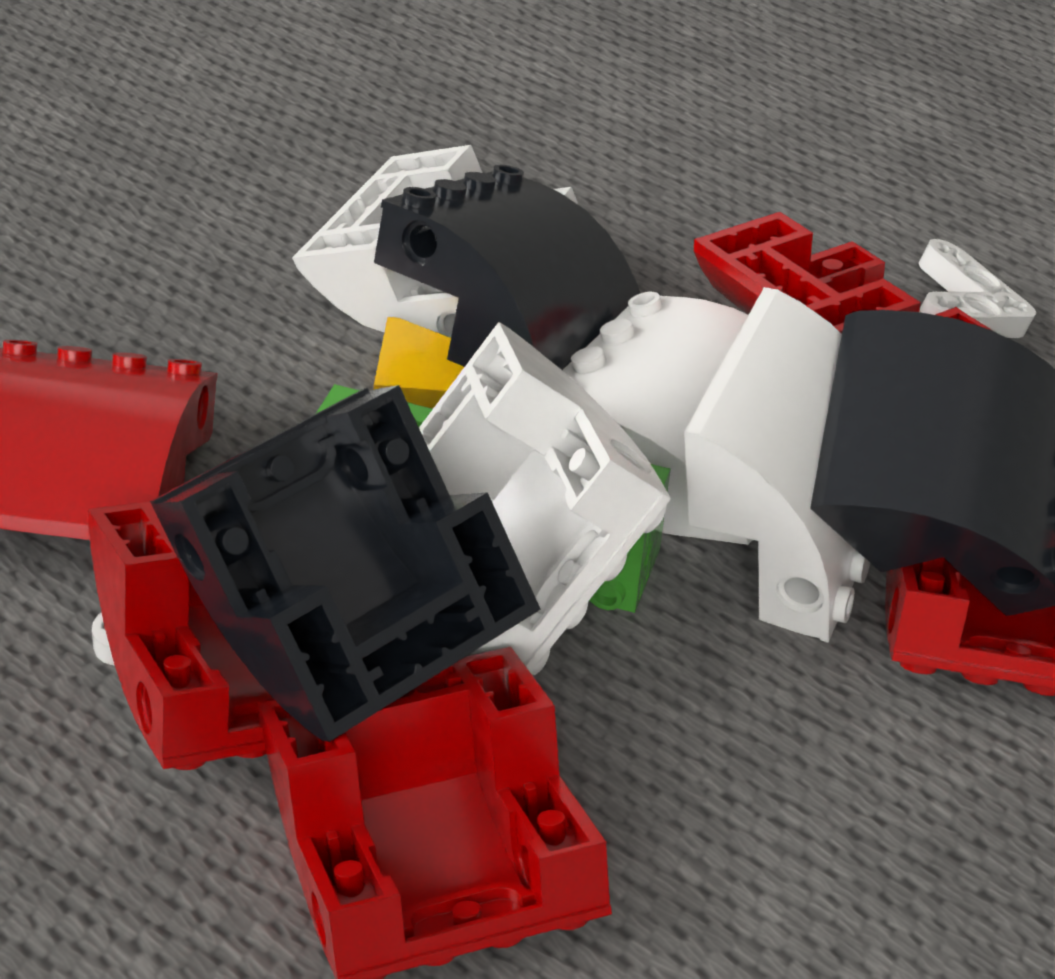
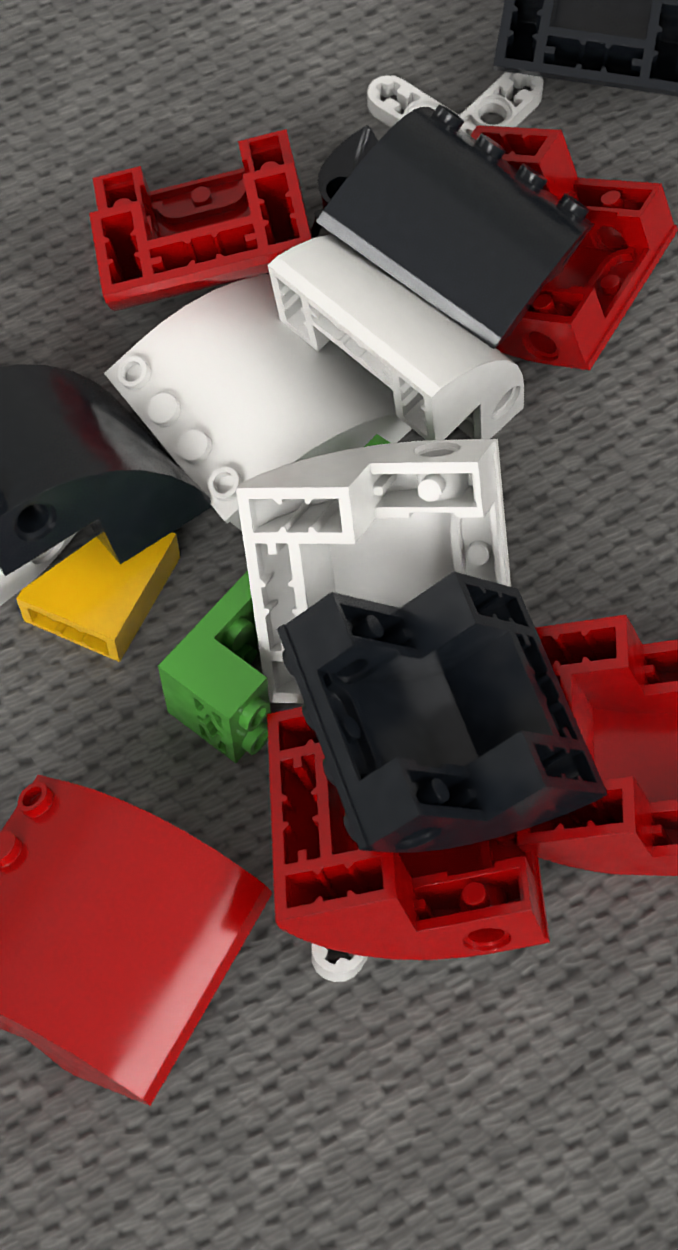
camera: 65 degrees left, 20 degrees up
(973, 291) = (166, 114): white beam -> none

